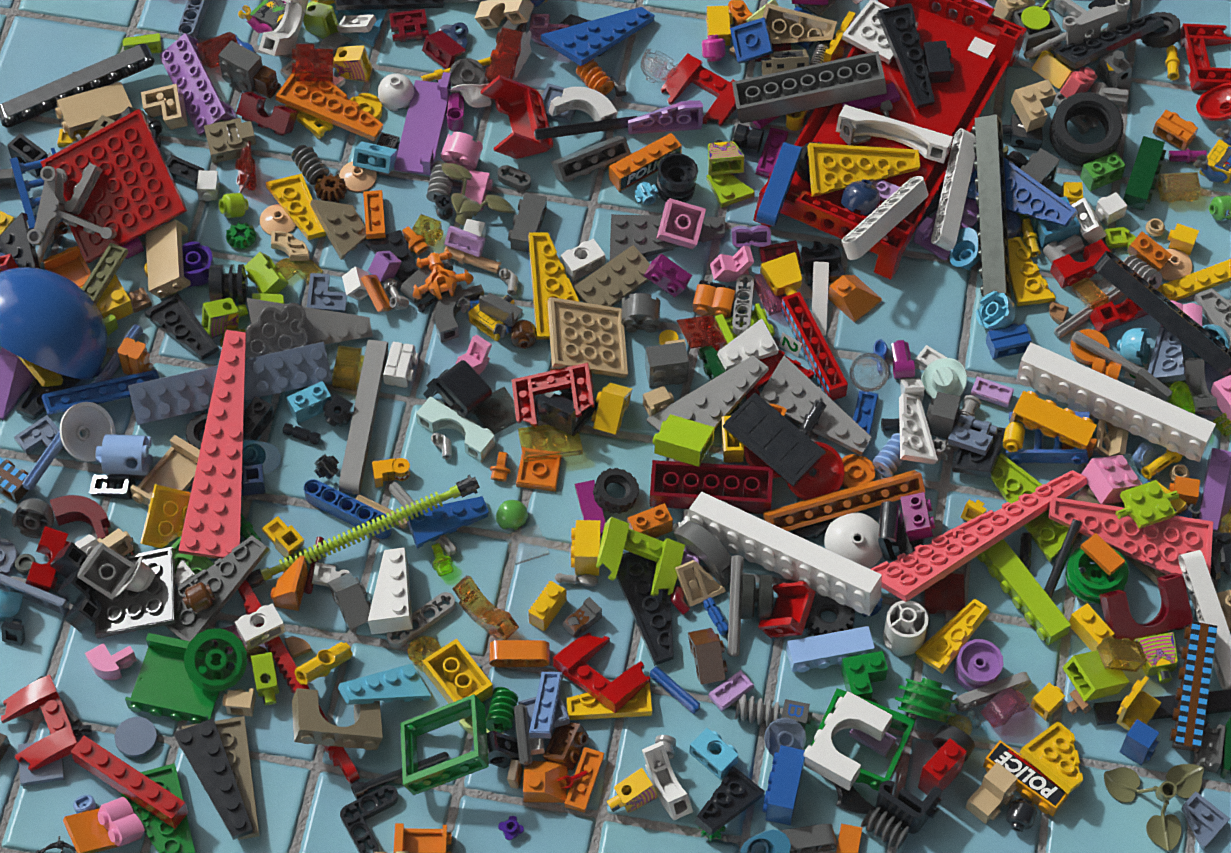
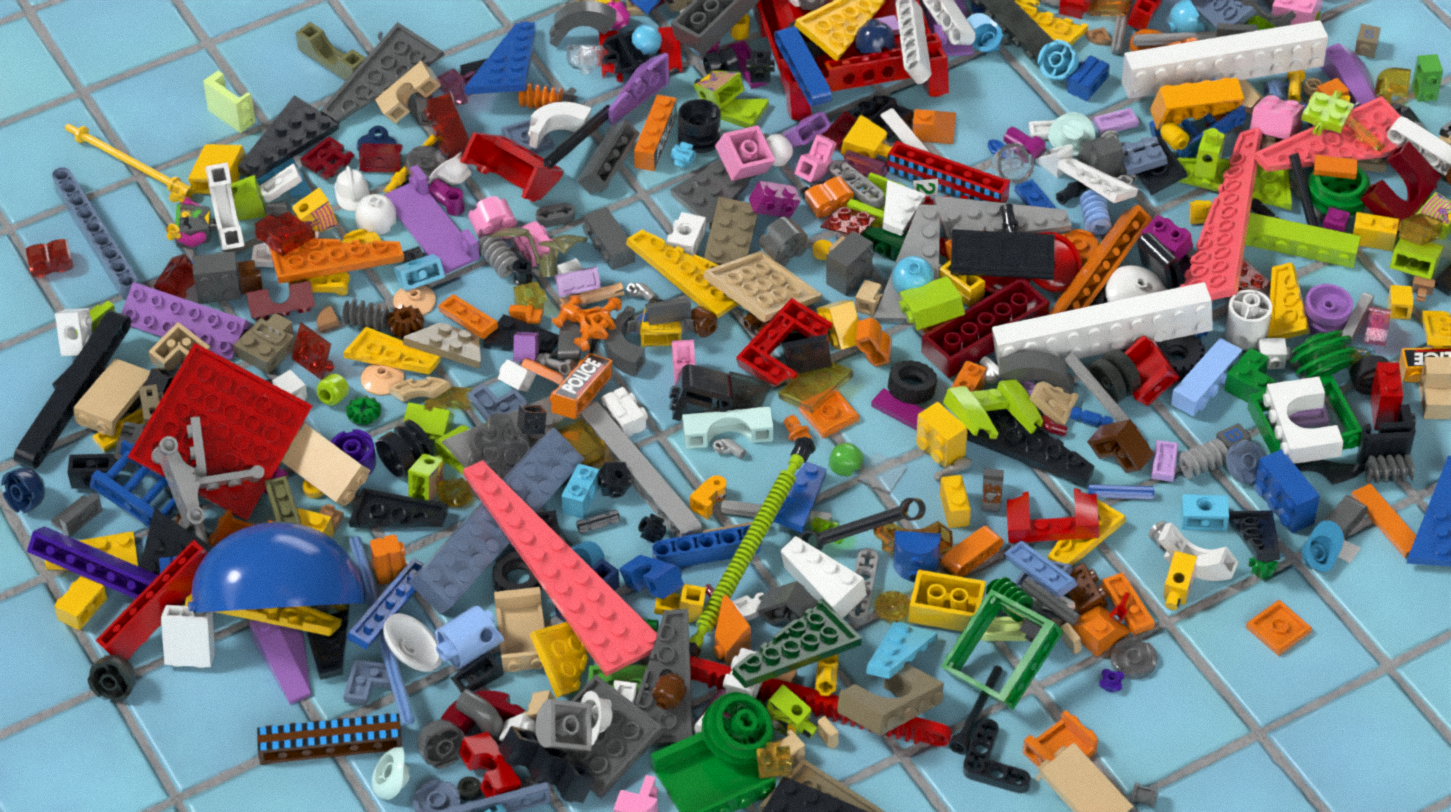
camera: 40 degrees left, 10 degrees down
(74, 516) = (482, 713): none -> dark grey cylinder
(113, 40) = (66, 323): none -> white brick
(215, 703) = (782, 764): none -> clear yellow brick
(280, 710) = (827, 732): none -> tan tile
(282, 503) = (657, 575): none -> blue arch
(286, 148) = (327, 319): none -> medium nougat tile
(315, 632) = (800, 643): none -> dark green wing
(320, 325) = (531, 419): none -> black brick
(386, 323) = (581, 386): none -> brick
(402, 60) = (350, 189): none -> white piece
(450, 575) = (866, 524): none -> black piece
(472, 626) = (915, 552): none -> blue brick
(545, 824) = (1133, 658): none -> flat silver tile
(617, 439) = (873, 342): none -> orange brick
(682, 33) = (581, 13): none -> dark grey arch
(685, 82) = (623, 53): none -> black plate
(695, 407) = (911, 273): none -> medium azure cylinder
(710, 83) = (647, 39): none -> medium azure hair
(715, 237) = (780, 148): none -> white hair
(766, 160) = (760, 66): none -> black brick
(901, 667) = (1276, 351): none -> white brick
(1025, 470) = (1211, 144): none -> lime torso
(1066, 599) = (1336, 220): none -> magenta brick
(1157, 543) = (1364, 134): none -> clear yellow plate

